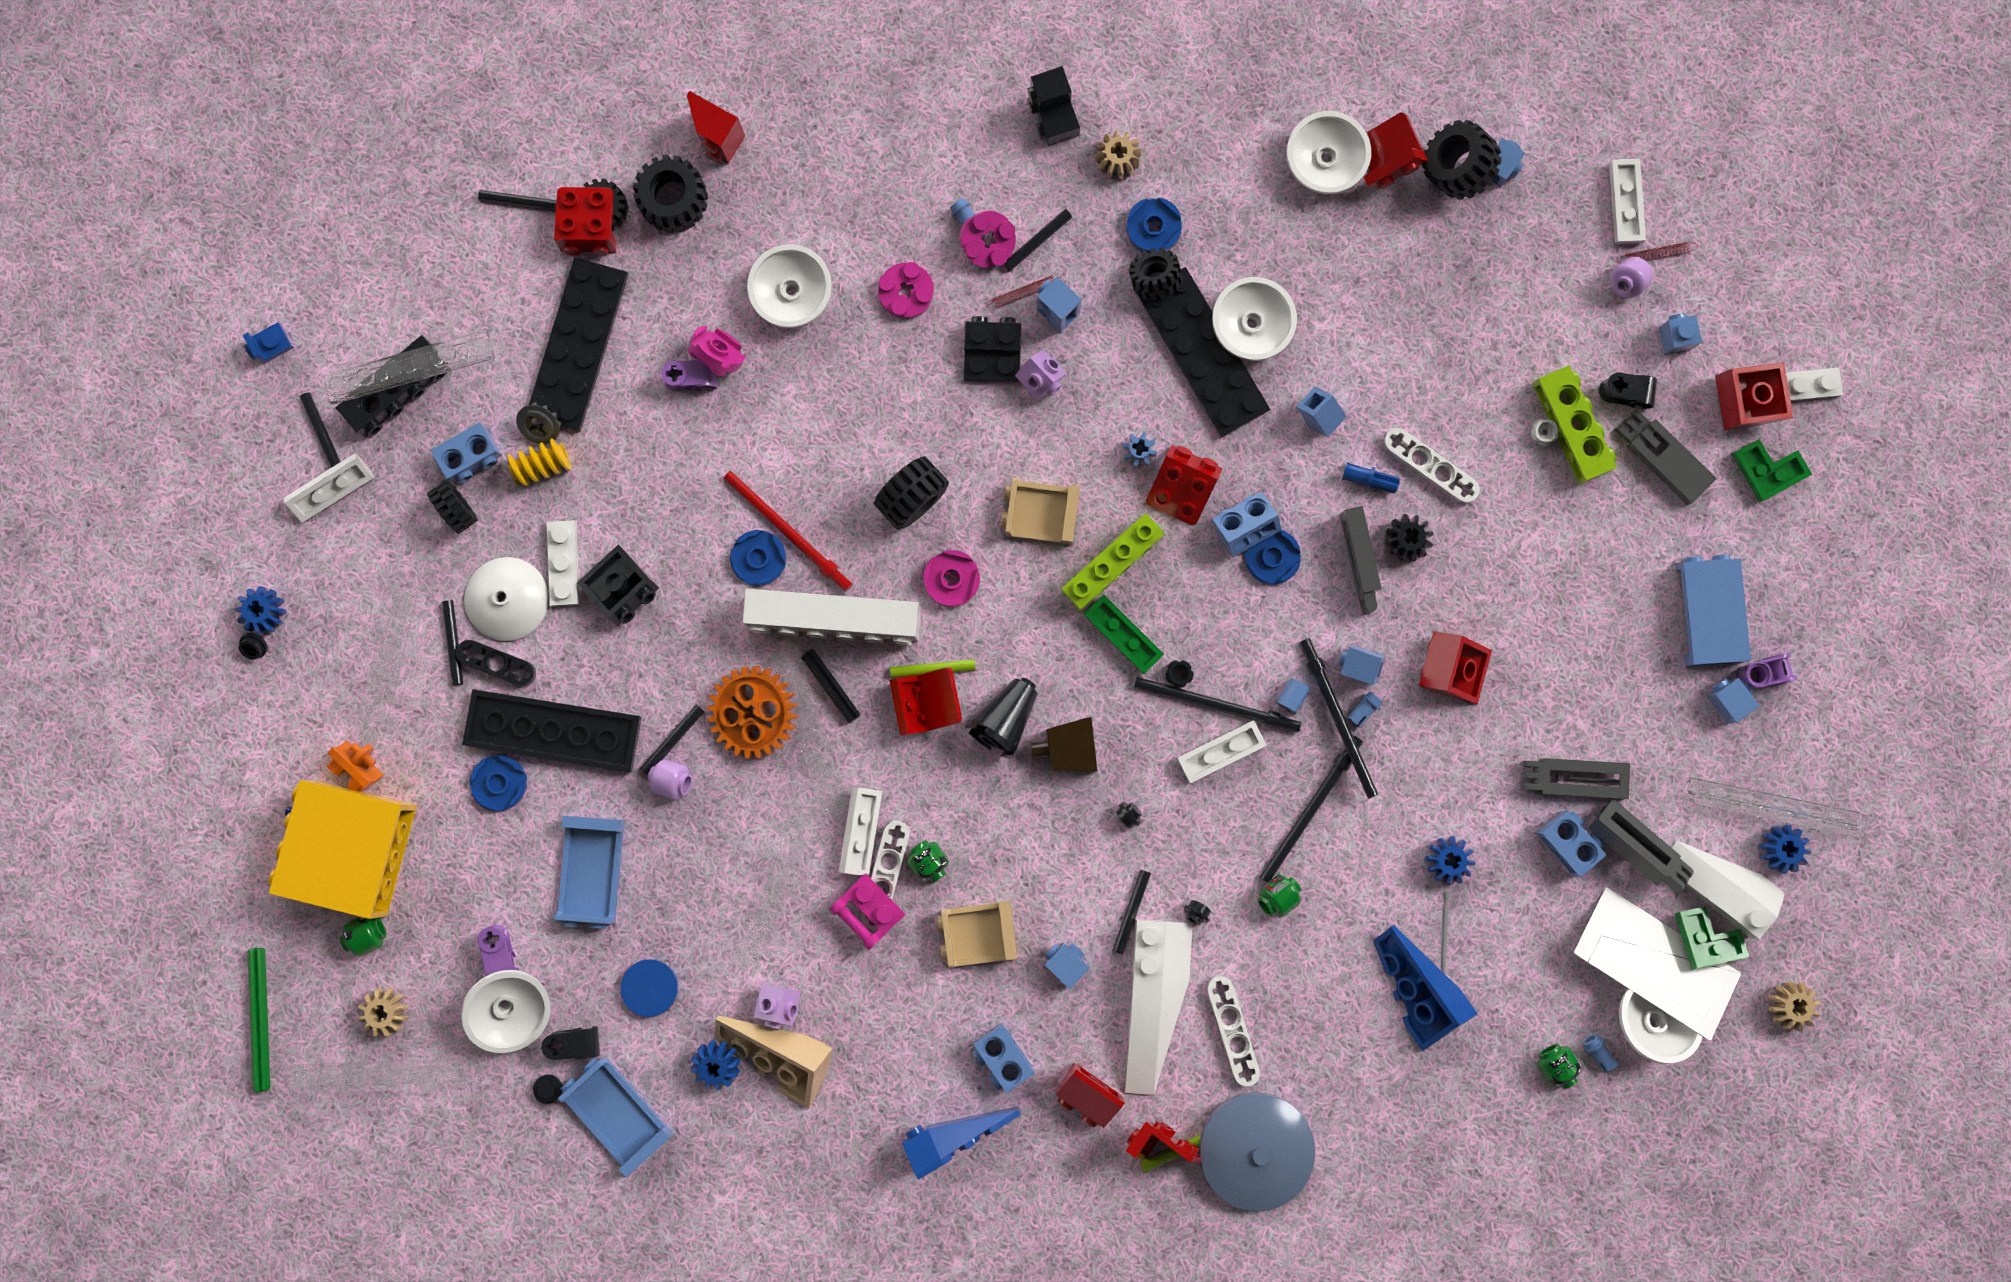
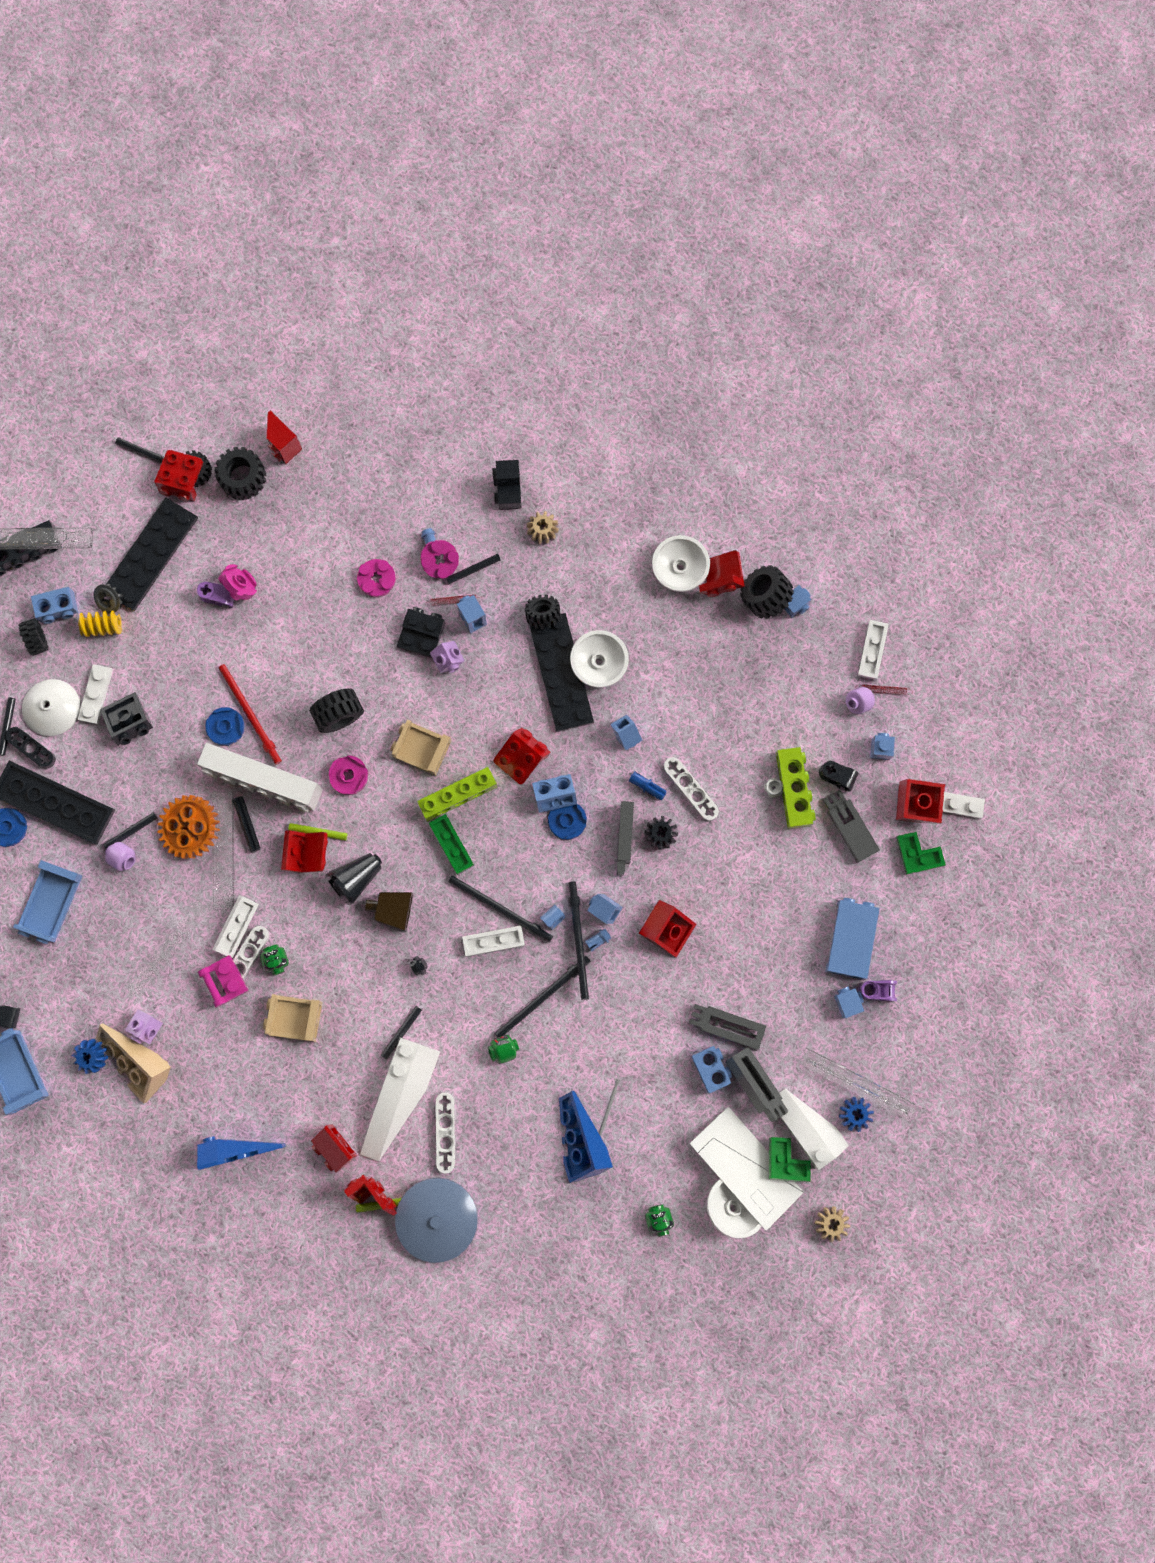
camera: 10 degrees right, 5 degrees down
(649, 987) = (63, 992): blue tile -> none
(785, 268) = (292, 544): white dish -> none
(1009, 1054) = (290, 1105): medium blue brick -> none
(1066, 963) = (345, 1054): medium blue brick -> none
(1132, 452) = (499, 729): medium blue gear -> none
(1153, 210) = (555, 570): blue plate -> none
(1185, 668) = (476, 881): black plate -> none
(1197, 912) = (444, 1045): black plate -> none
(1446, 871) = (629, 1052): blue gear -> none
(1600, 1053) = (691, 1221): medium blue pin -> none

